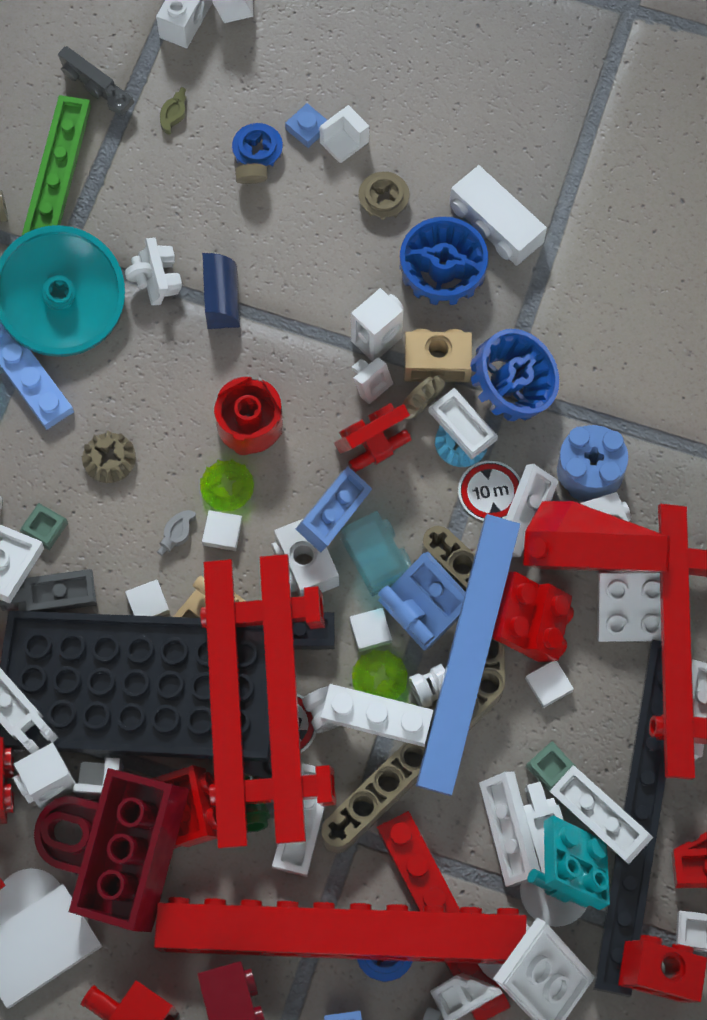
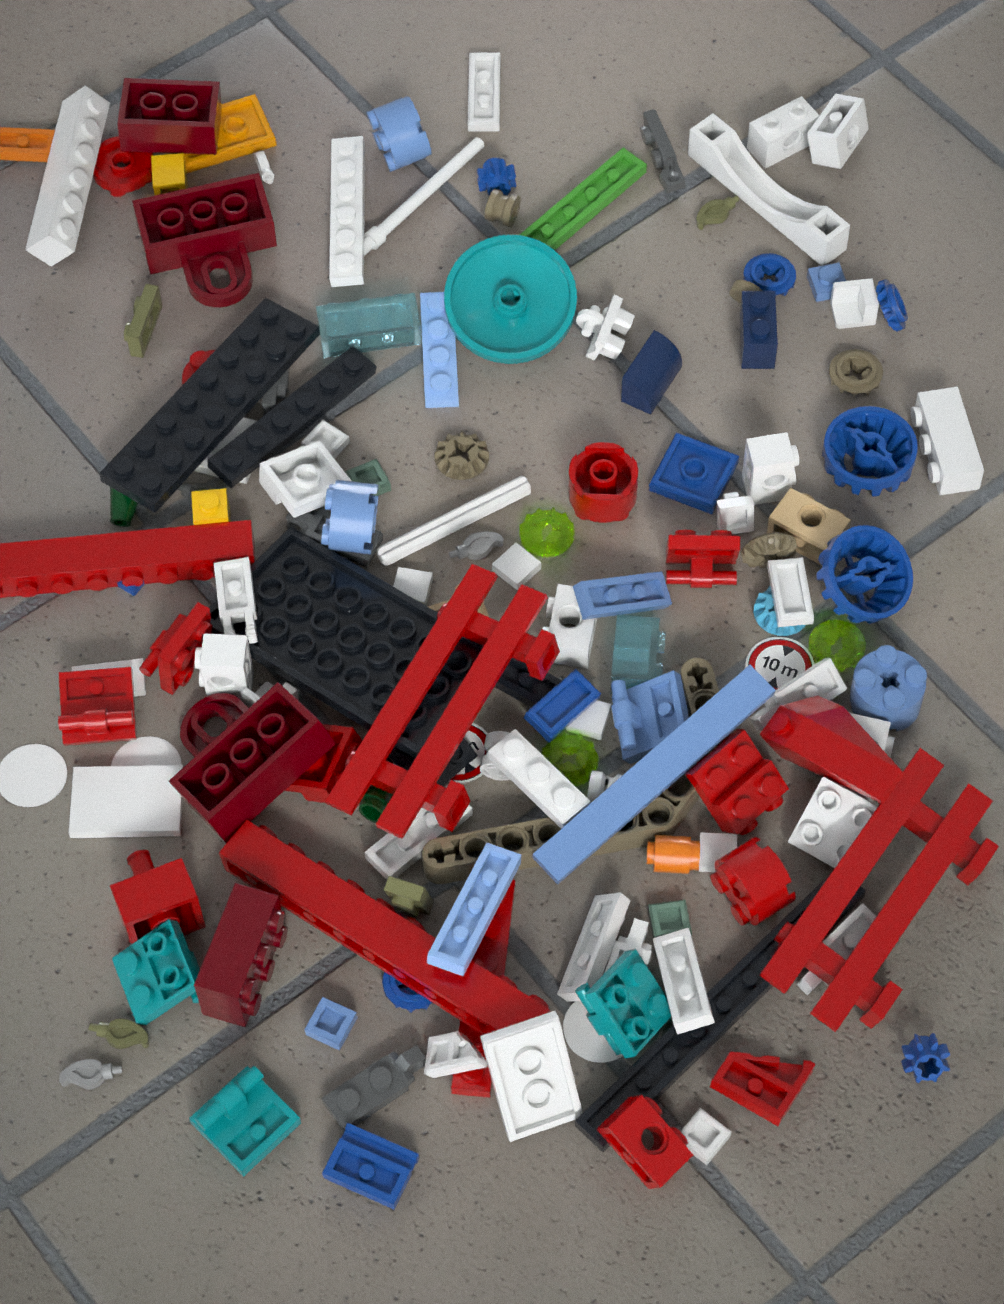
camera: 35 degrees right, 10 degrees down
(64, 576) = (351, 516): none -> medium blue brick
(142, 521) = (453, 521): none -> white axle
(262, 84) = (808, 225): none -> white arch
(283, 202) = (758, 330): none -> dark blue brick
(311, 360) = (694, 473): none -> blue tile
(339, 886) = (408, 897): none -> olive plate
(347, 635) = (562, 705): none -> blue tile
(377, 119) = (892, 305): none -> blue gear
(407, 866) = (474, 909): none -> light blue plate
(519, 708) = (673, 854): none -> orange brick
(534, 436) = (827, 634): none -> clear neon green gear
(601, 696) = (753, 882): none -> red brick

